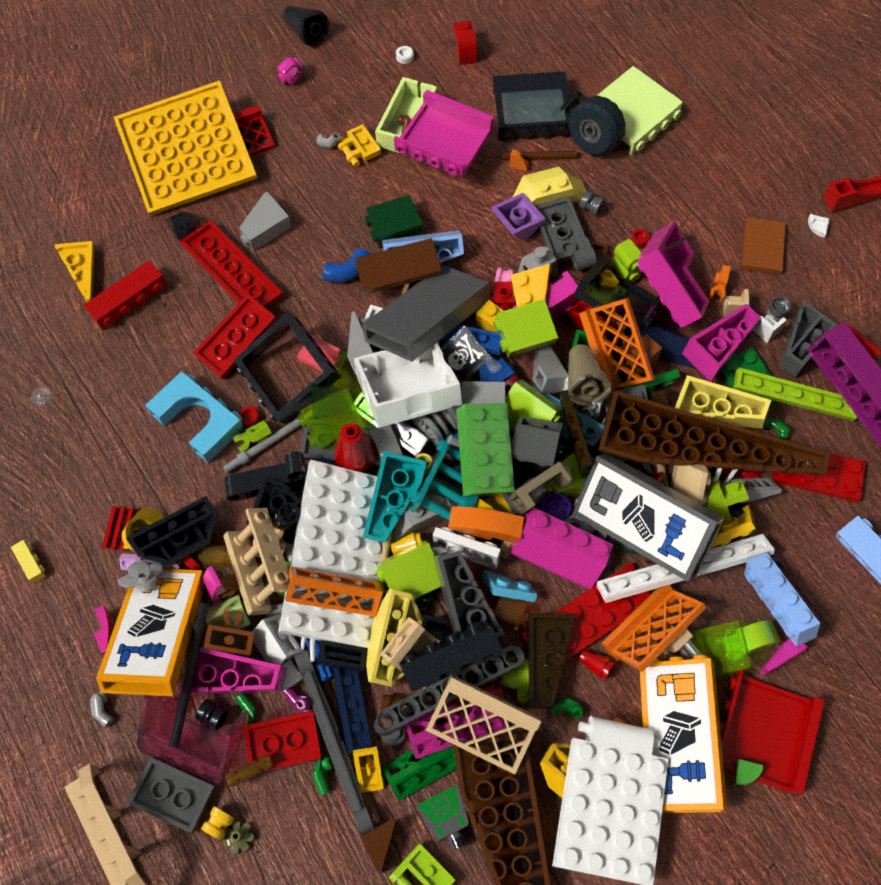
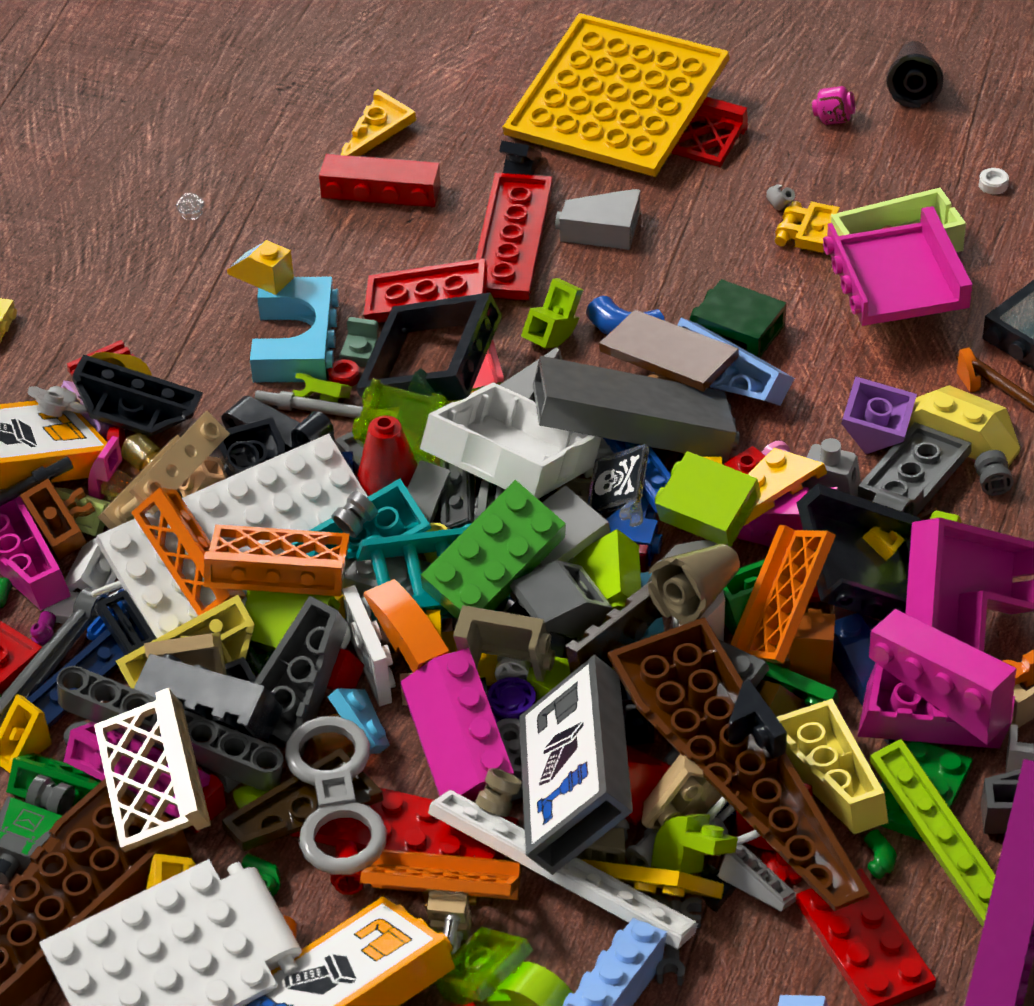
camera: 50 degrees right, 20 degrees down
(143, 398) = (265, 267): none -> yellow slope
(236, 393) = (360, 340): none -> sand green bracket
(313, 294) = (556, 319): none -> lime brick
(389, 491) = (354, 514): none -> flat silver wheel
(395, 559) = (284, 573): none -> orange fence
(433, 782) = (50, 796): none -> dark grey wheel
(562, 639) = (335, 795): none -> light grey bar
(620, 559) = (498, 792): none -> dark tan wheel
(699, 418) = (755, 717): none -> black slope
(729, 319) = (946, 672): none -> dark pink wedge

